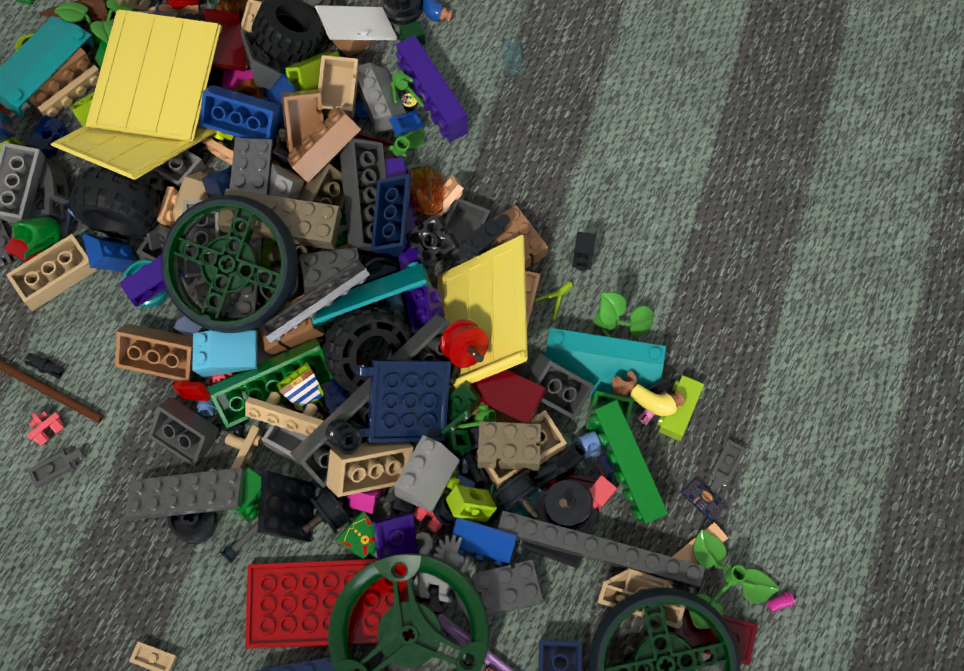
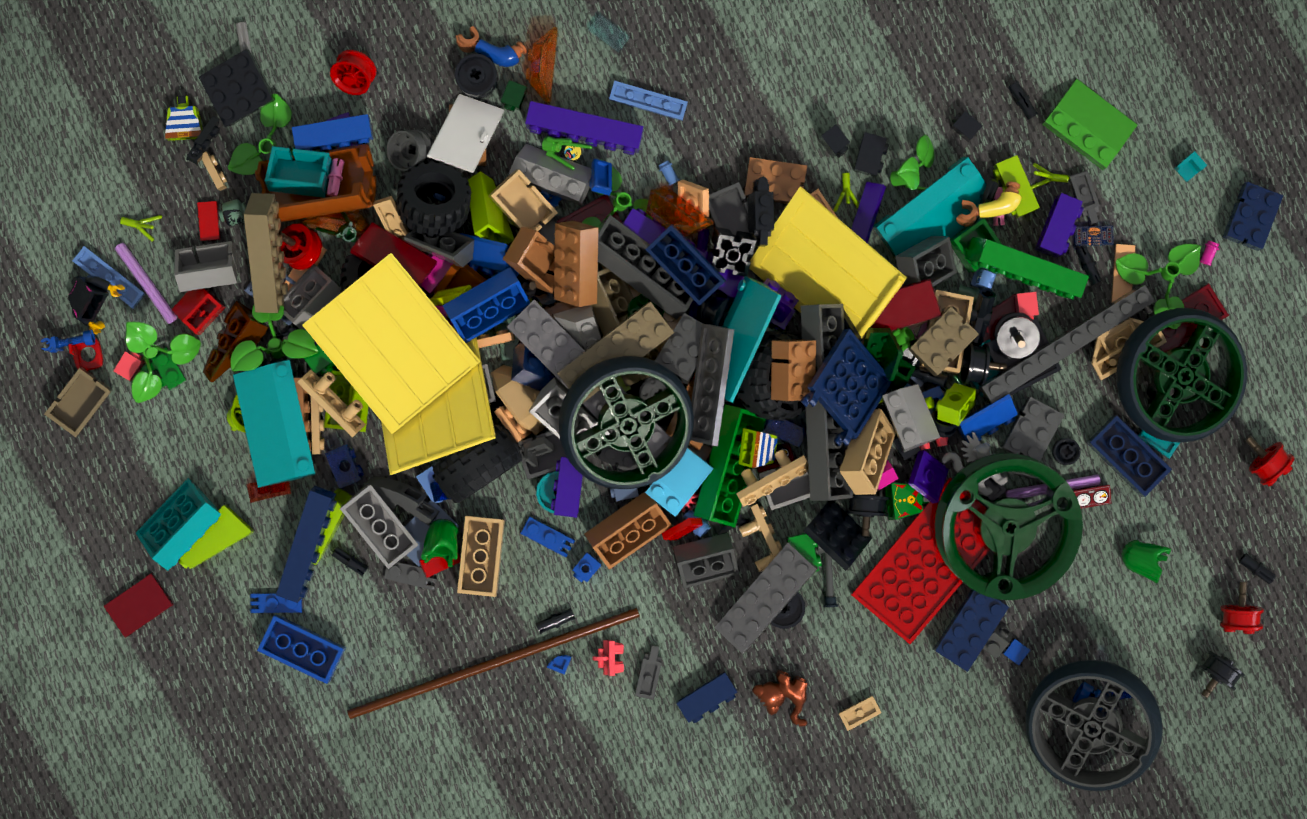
camera: 50 degrees left, 20 degrees up
(12, 397) = (560, 663): none -> blue tile
(69, 526) = (707, 698): none -> dark blue brick
(81, 80) = (344, 415): none -> tan plate
(103, 351) = (586, 568): none -> blue brick
(107, 307) = (546, 536): none -> blue hinge
(108, 253) = (502, 499): blue slope -> none
(111, 575) = (773, 695): none -> copper animal
(343, 436) = (840, 454): black wheel -> none
(384, 344) = (791, 379): none -> medium nougat piece
(452, 34) = (542, 65): none -> clear orange wedge
(455, 166) = (668, 173): none -> medium blue pin
(464, 343) = (846, 307): red wheel -> none
(491, 116) = (648, 100): none -> medium blue plate
(516, 632) = (1066, 451): none -> black wheel
(555, 319) = (868, 210): none -> dark purple tile
(602, 281) = (870, 154): none -> black brick
(604, 467) = (1012, 286): clear blue tile -> none
(677, 516) = (1089, 265): none -> black pin
(684, 462) = (1059, 225): none -> dark purple brick
(688, 333) = (966, 125): none -> black brick
(715, 429) = (1051, 177): none -> lime plant
(750, 346) = (1022, 100): none -> black pin
(780, 420) = (1090, 124): none -> bright green slope
(829, 524) = (1190, 166): none -> teal panel
(843, 608) = (1253, 216): none -> dark blue piece

